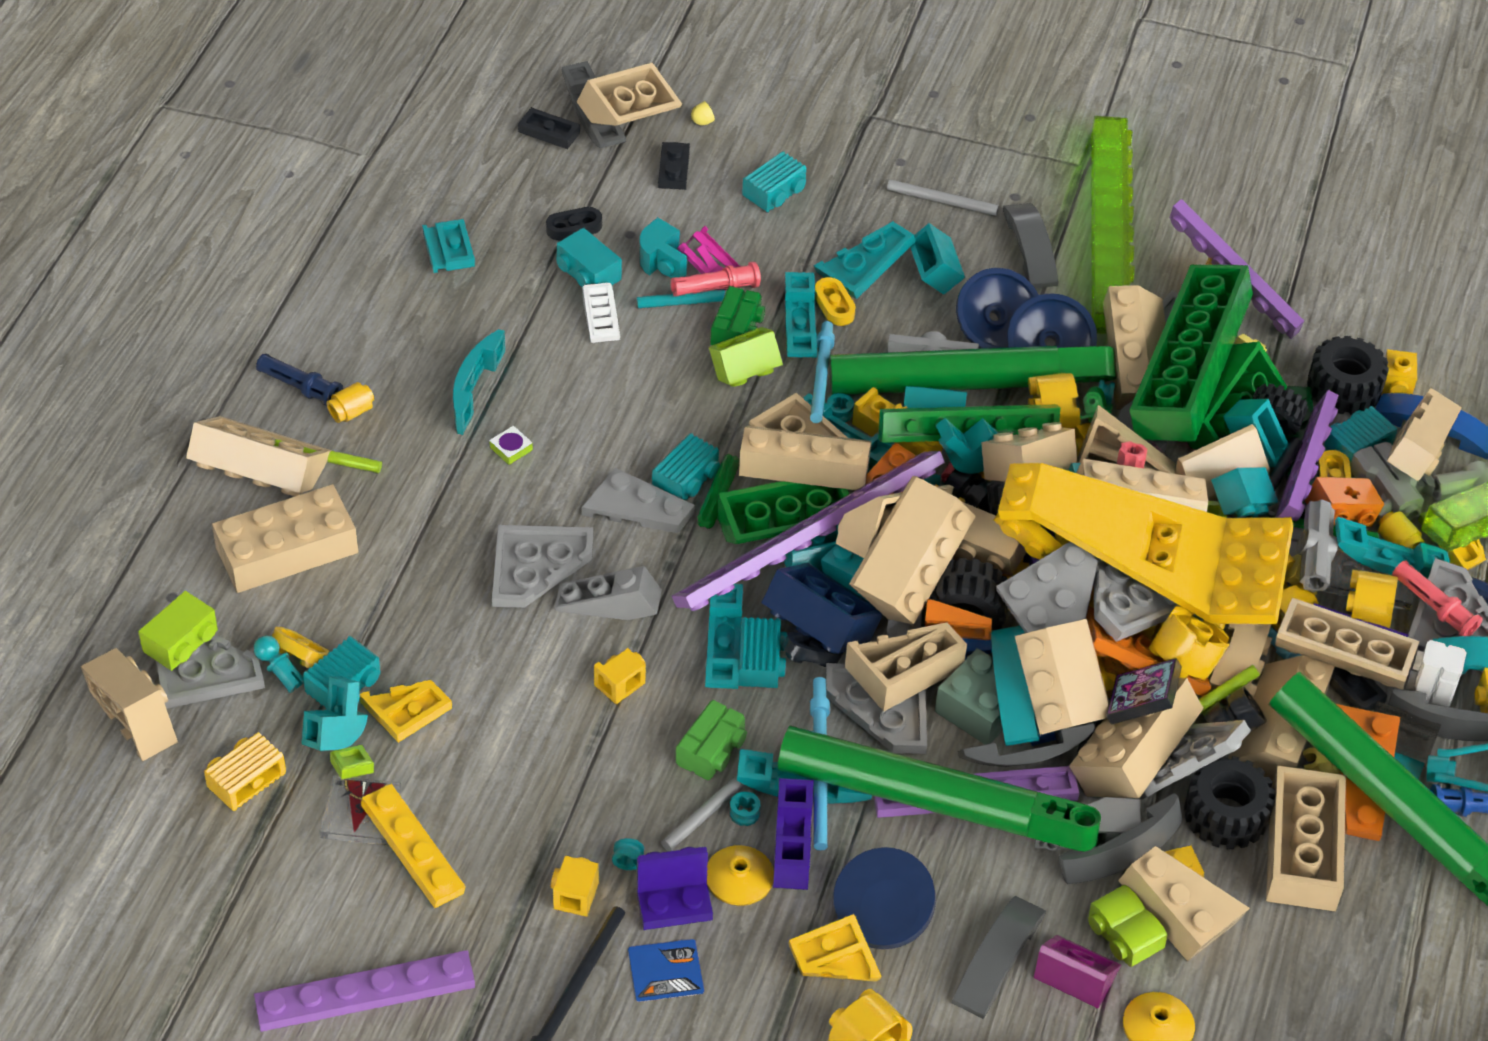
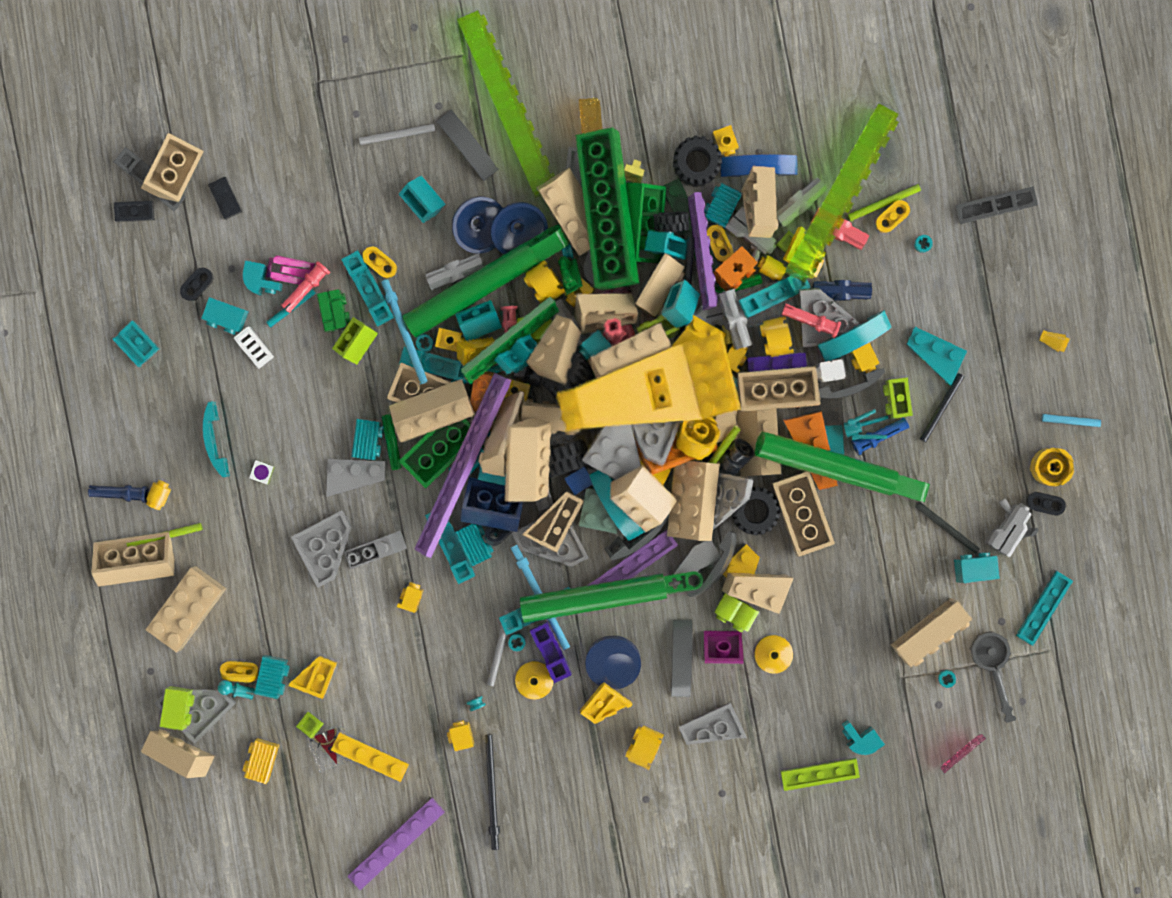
camera: 25 degrees left, 40 degrees up
(340, 723) = (289, 712): teal brick -> none
(666, 970) = (528, 752): blue sticker -> none
(673, 888) = (511, 716): dark purple bracket -> none
(702, 114) = (217, 145): light yellow hinge -> none
(711, 740) = (479, 613): bright green brick -> none
(774, 181) = (293, 182): teal brick -> none
(868, 260) = (381, 224): teal wing -> none
(965, 623) = (565, 483): orange slope -> none
(1144, 691) = (688, 482): tile -> none
(1220, 253) = (592, 114): medium lavender plate -> none

